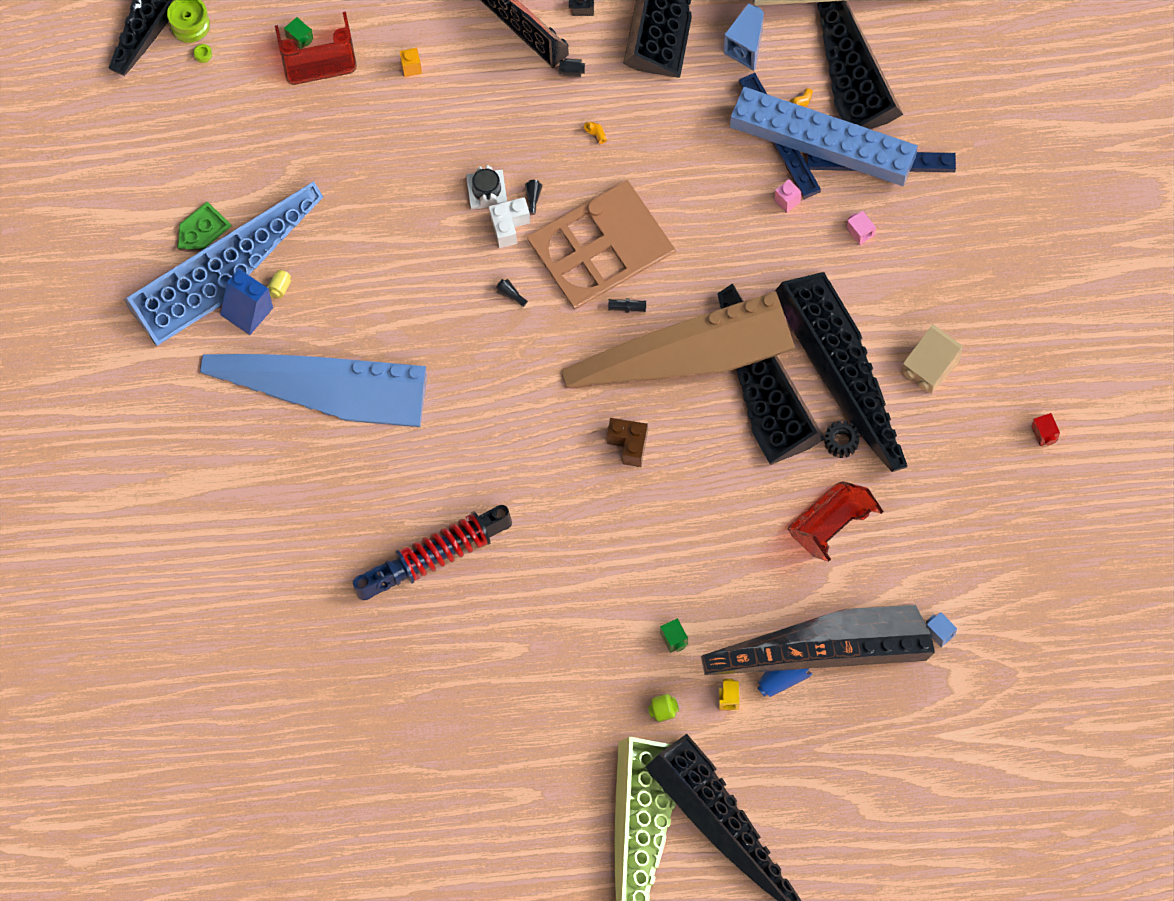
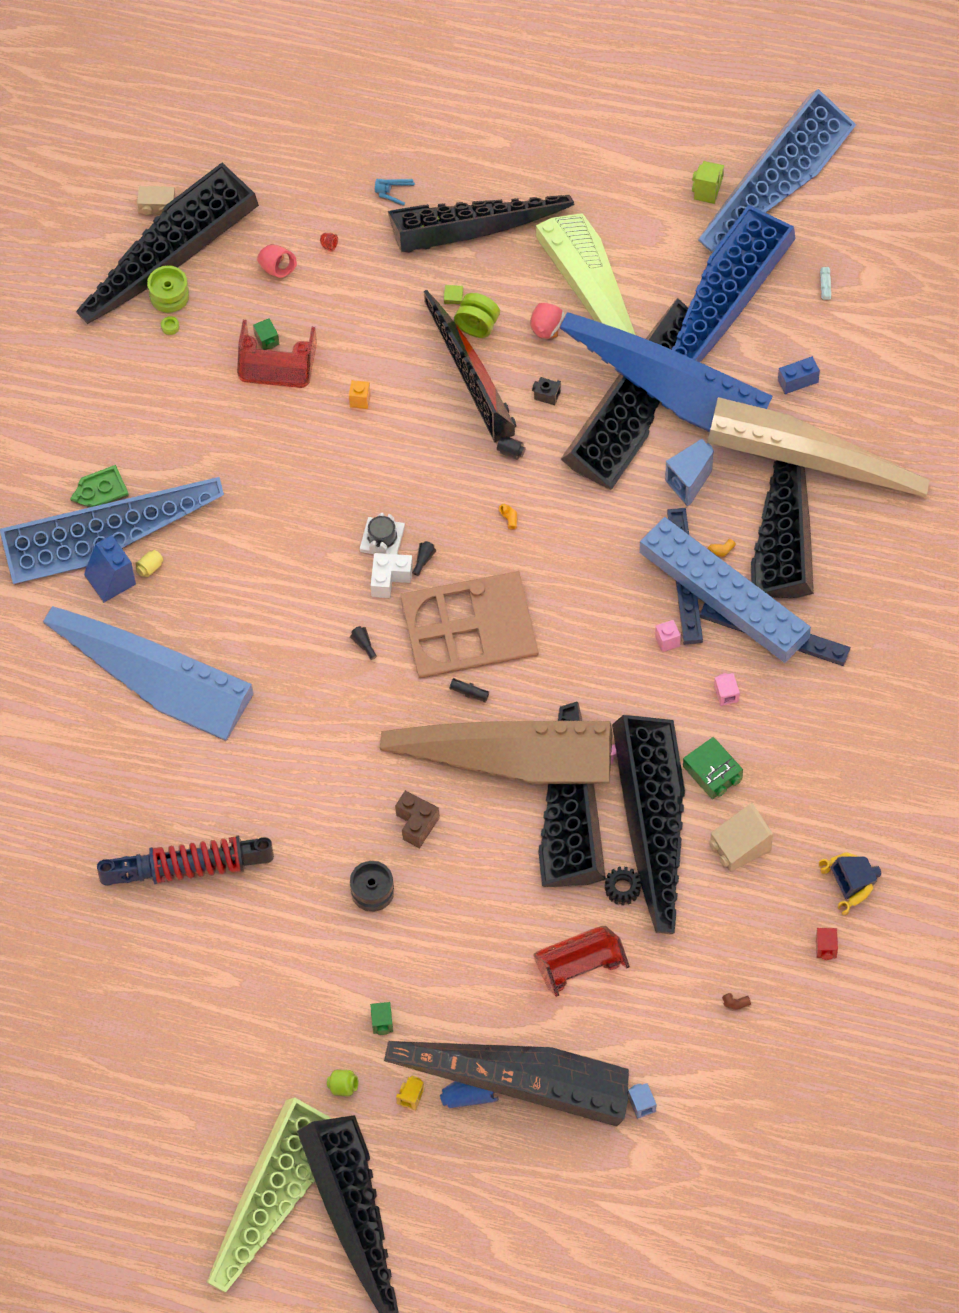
camera: 20 degrees right, 5 degrees down
(615, 516) = (372, 886): none -> black wheel
(879, 304) = (713, 768): none -> green brick
(987, 512) = (735, 1004): none -> copper arm
(1045, 360) = (853, 876): none -> dark blue torso

